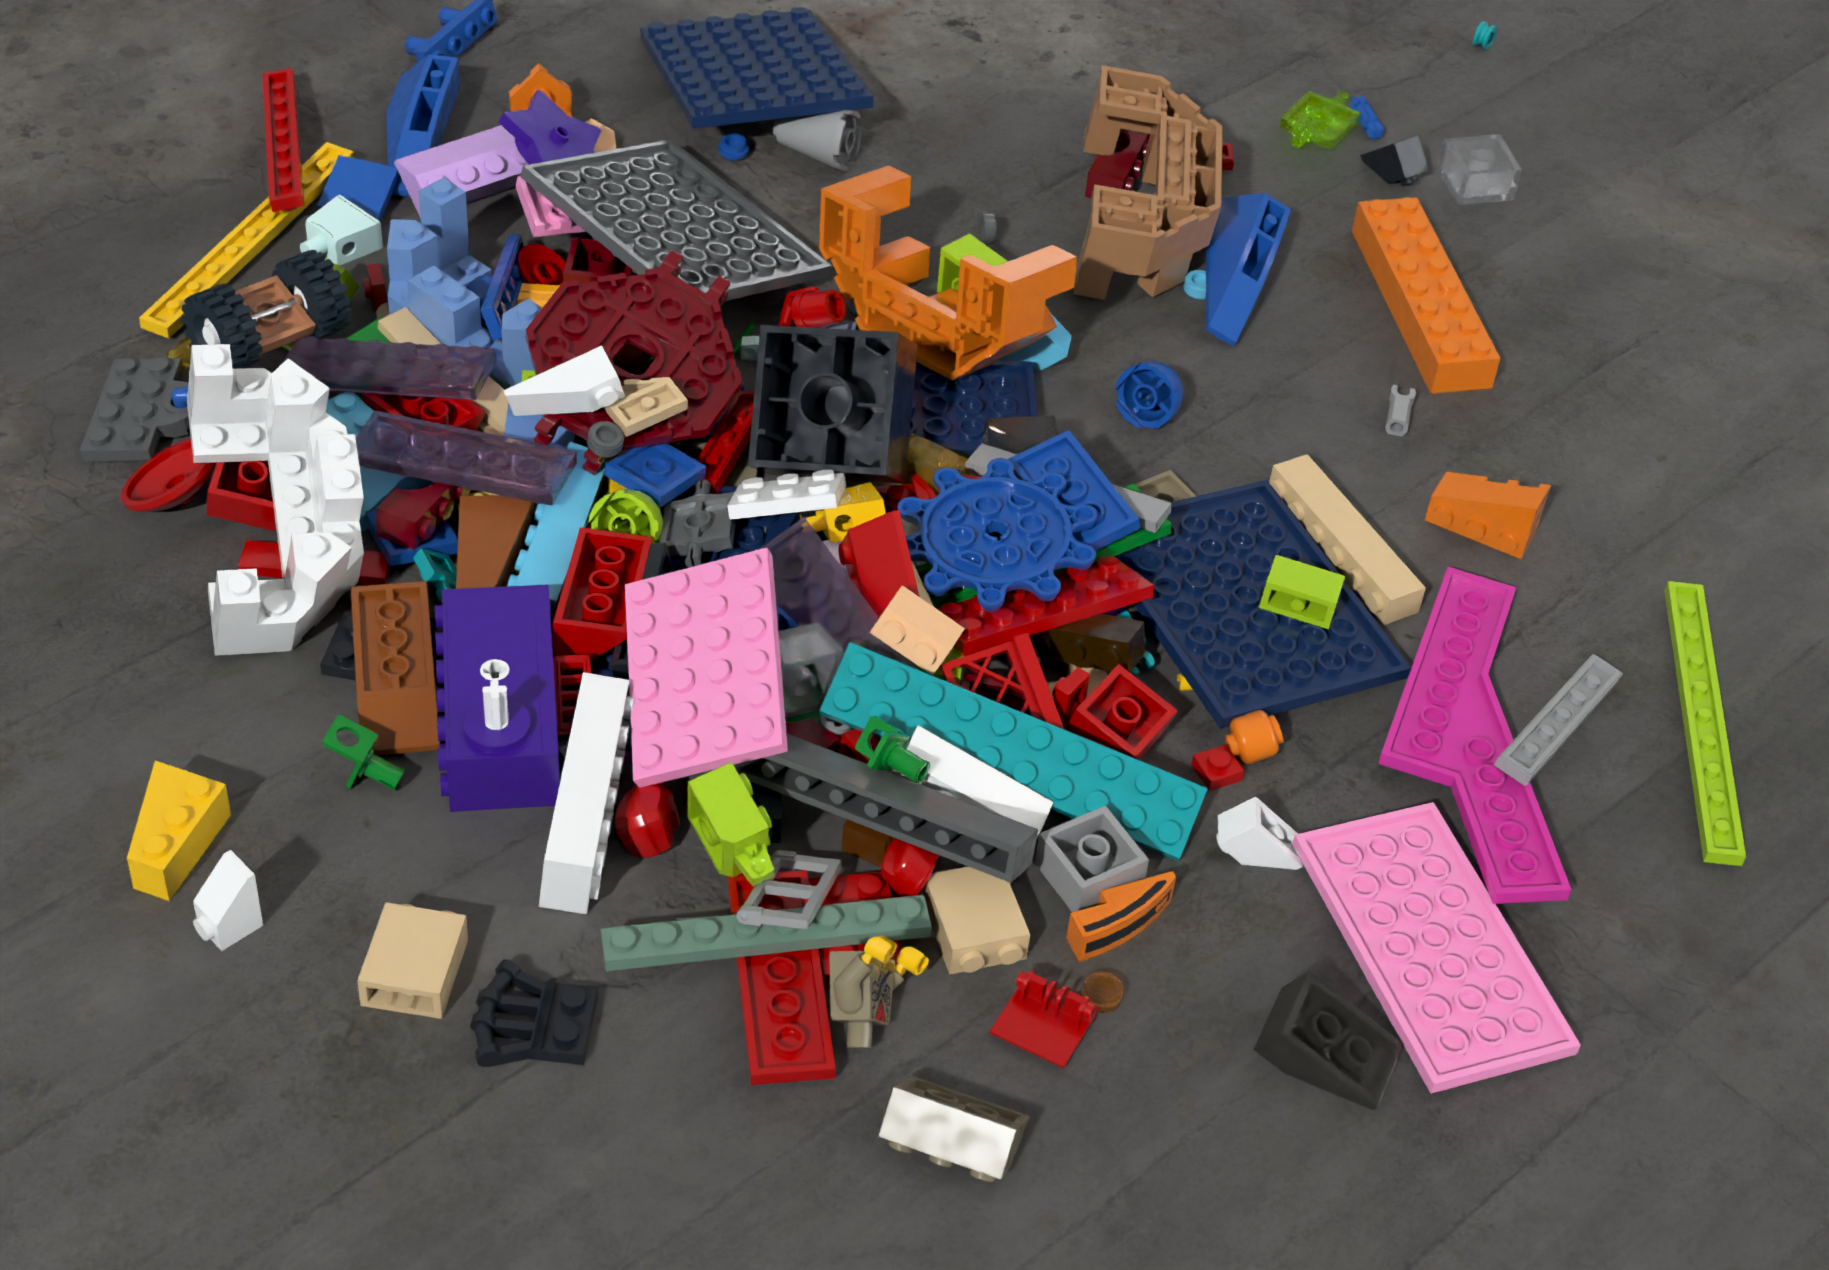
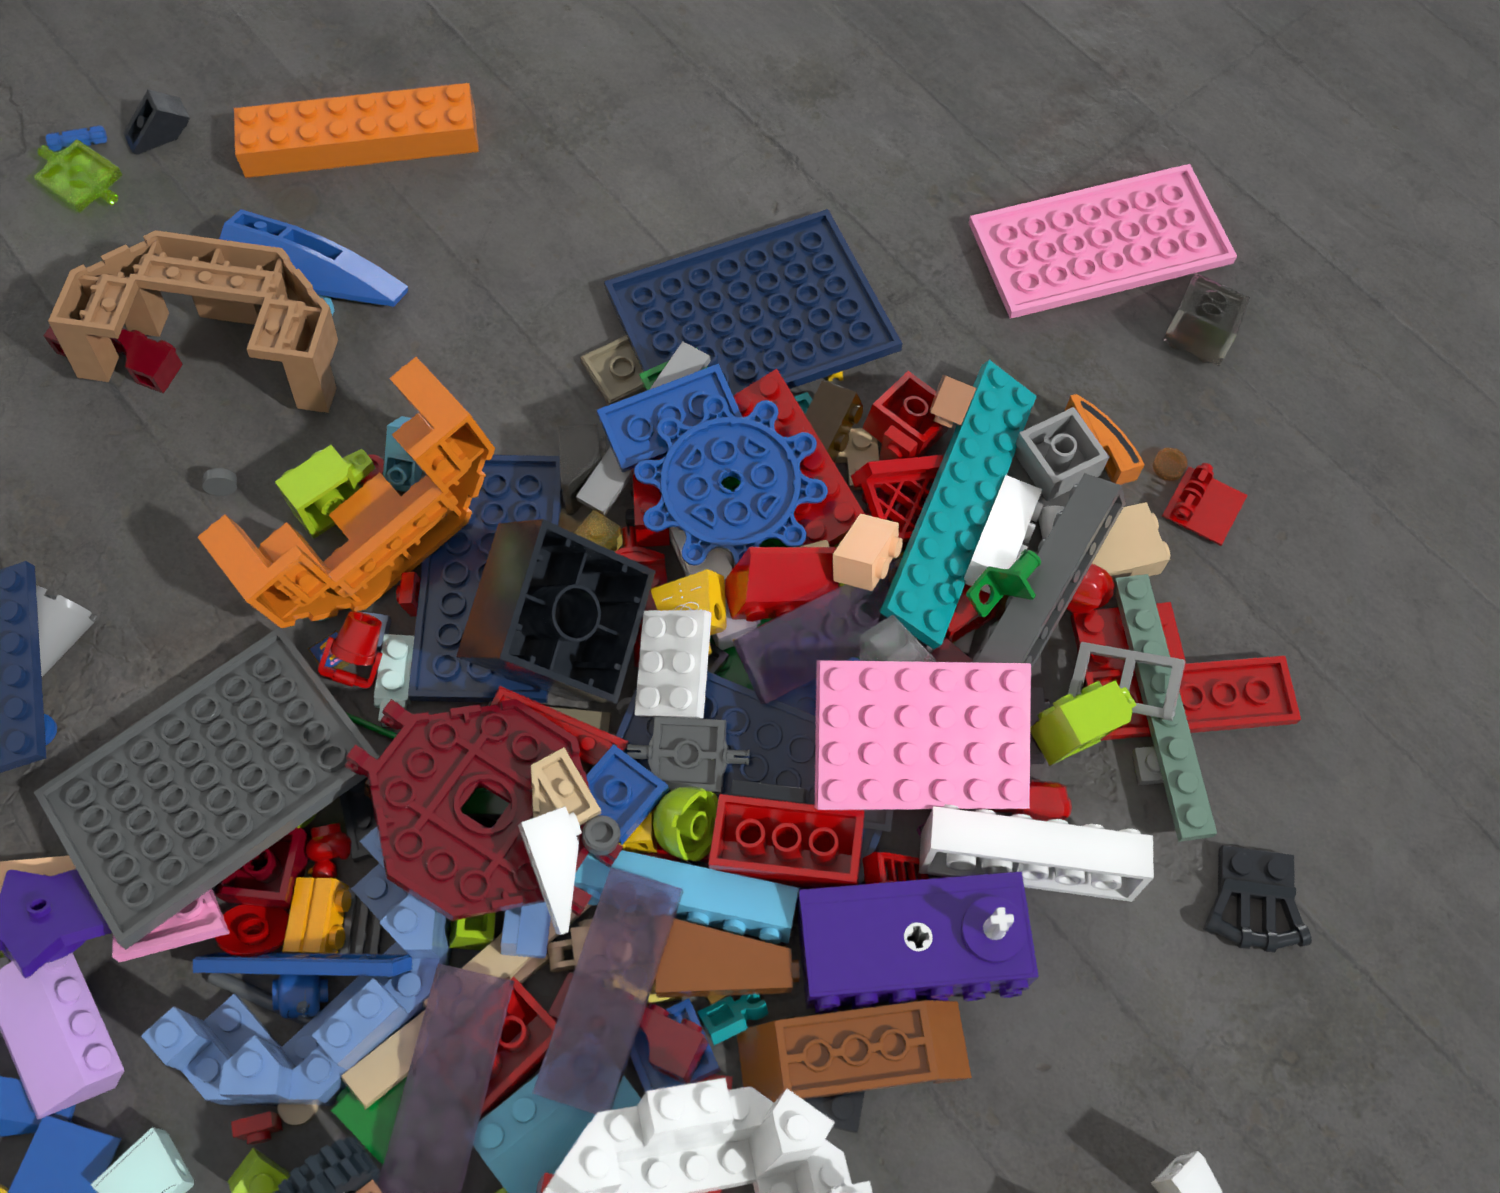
camera: 85 degrees left, 20 degrees up
(362, 754) = (995, 1072): green bracket -> none
(413, 960) = (1217, 1005): tan brick -> none
(864, 986) = (1217, 625): dark tan torso -> none
(953, 1128) = (1320, 572): slope -> none
(1136, 730) = (951, 401): none -> nougat slope
(1149, 394) = (492, 357): blue cylinder -> none
(1217, 767) = (933, 360): red plate -> none
(1254, 736) = (910, 326): orange head -> none
(1257, 836) = (1015, 339): white slope -> none
(1302, 591) = (760, 266): lime brick -> none
(1348, 540) = (675, 233): tan brick -> none
(1399, 412) = (508, 174): light grey bar -> none
(1455, 730) = (893, 191): dark pink piece -> none
(1479, 169) = (185, 58): clear brick -> none
(1488, 511) = (651, 127): orange wedge -> none
(1558, 720) = (881, 121): light grey tile -> none
(1704, 725) = (866, 35): lime plate -> none

